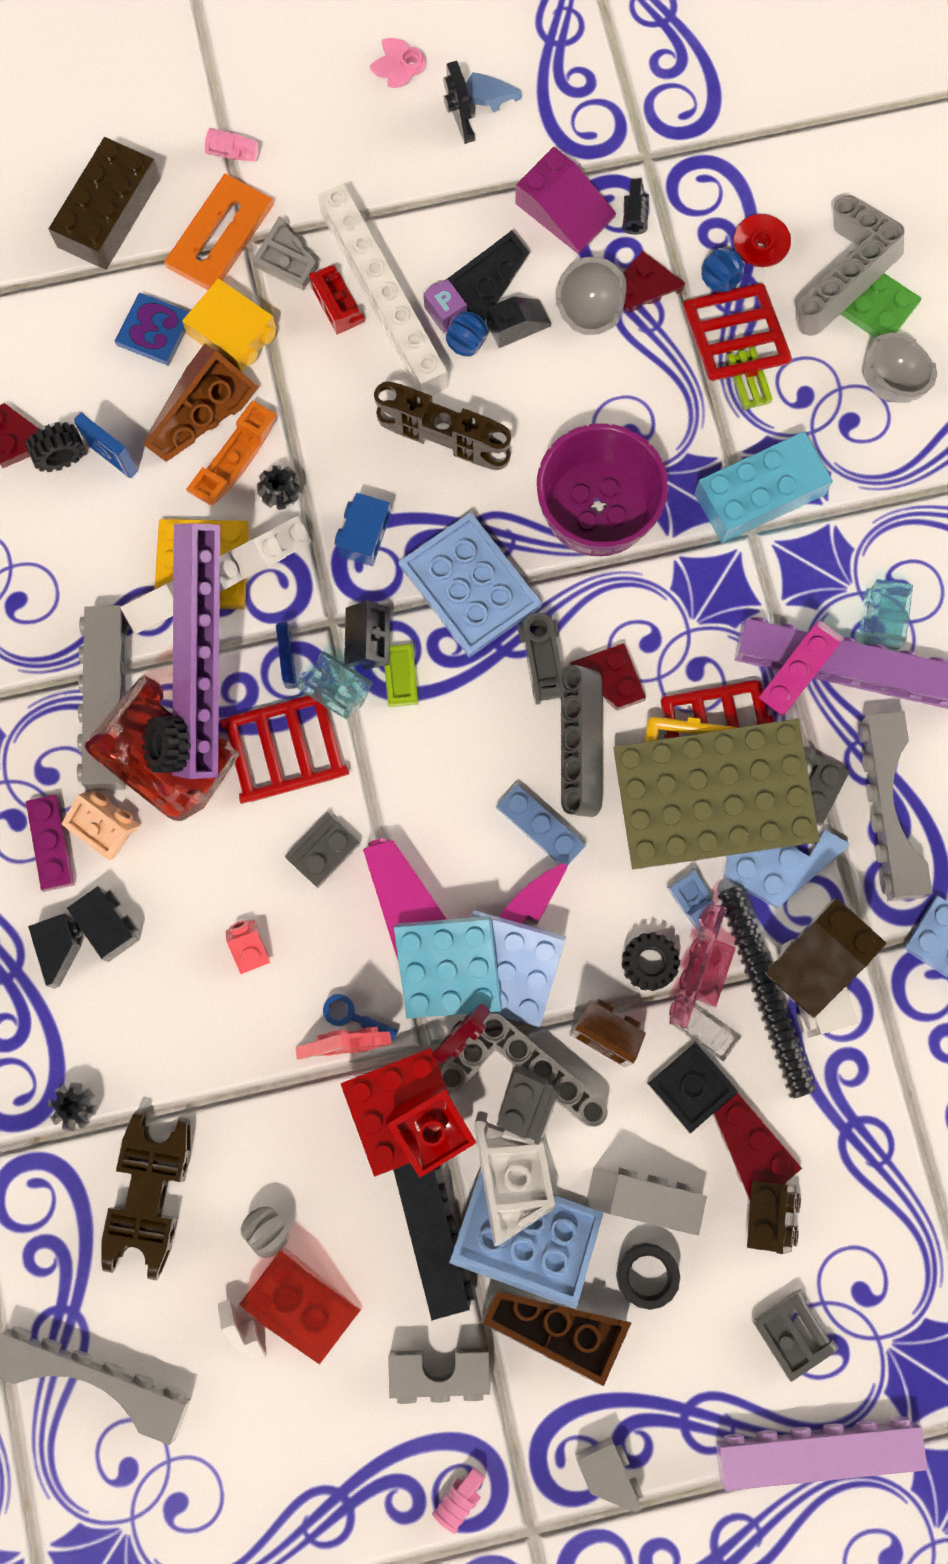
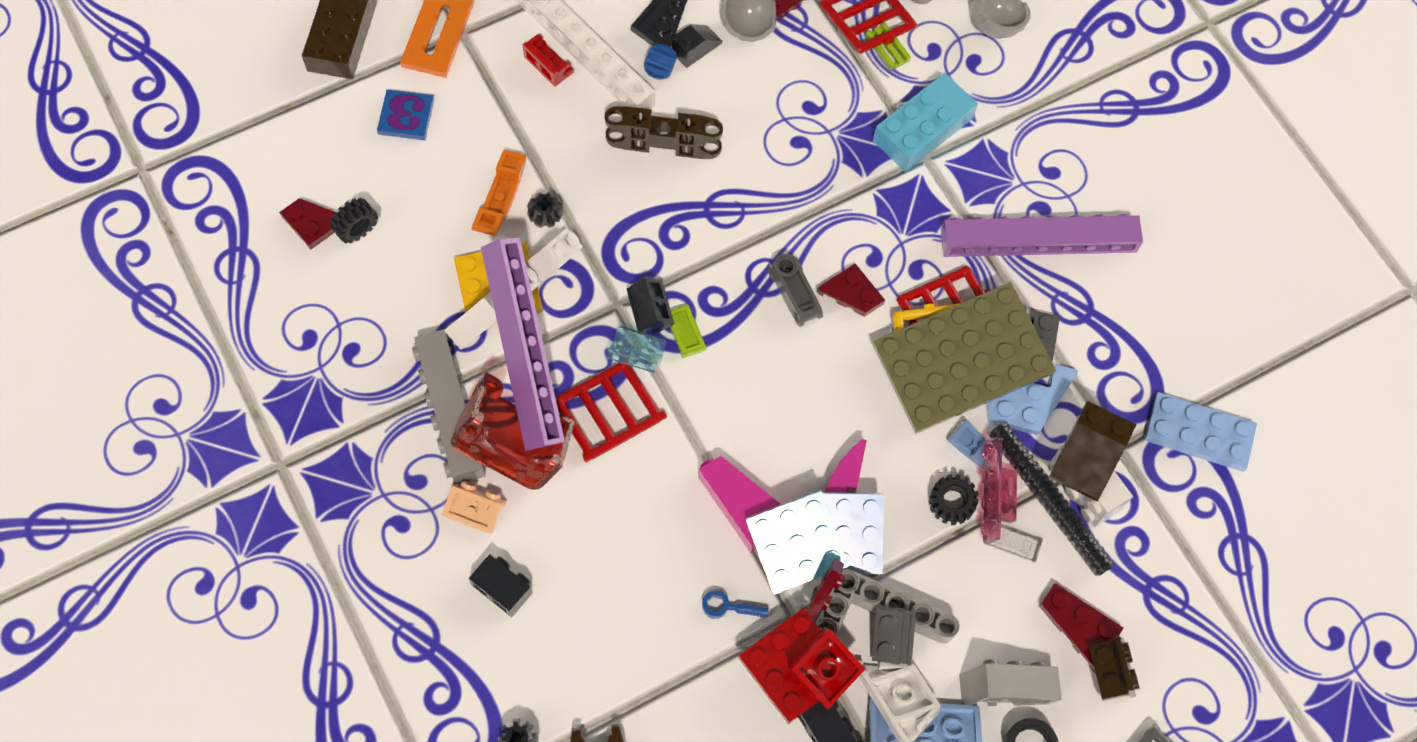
camera: 20 degrees left, 10 degrees down
(49, 843) = (435, 534): magenta plate -> none
(56, 947) = (466, 613): black slope -> none
(105, 445) = (396, 209): blue tile -> none
(166, 744) = (516, 424): black tyre -> none
(201, 399) = (461, 158): dark orange wedge -> none
(230, 324) = (468, 97): yellow brick -> none
(246, 946) = (625, 572): coral bracket -> none
(285, 256) = (497, 37): light grey wing -> none
(286, 655) = (589, 337): clear blue tile -> none
(322, 850) = (663, 482): dark grey plate -> none
(344, 1042) = (731, 623): coral wing -> none
(363, 529) = (622, 226): blue brick -> none
(443, 304) = (635, 44): medium lavender brick -> none
(470, 584) = (720, 248): light blue plate -> none
(540, 826) = (832, 418): medium blue plate -> none
(581, 741) = (859, 381): dark grey beam -> none
(607, 466) = (806, 133): magenta piece -> none
(608, 1033) = (939, 563): reddish brown slope -> none
(692, 1087) = (1017, 589): black tile -> none
(801, 667) = (999, 245): dark pink arch -> none
(886, 614) = (1049, 191): clear light blue brick -> none
(904, 870) = (1126, 378): light grey arch -> none

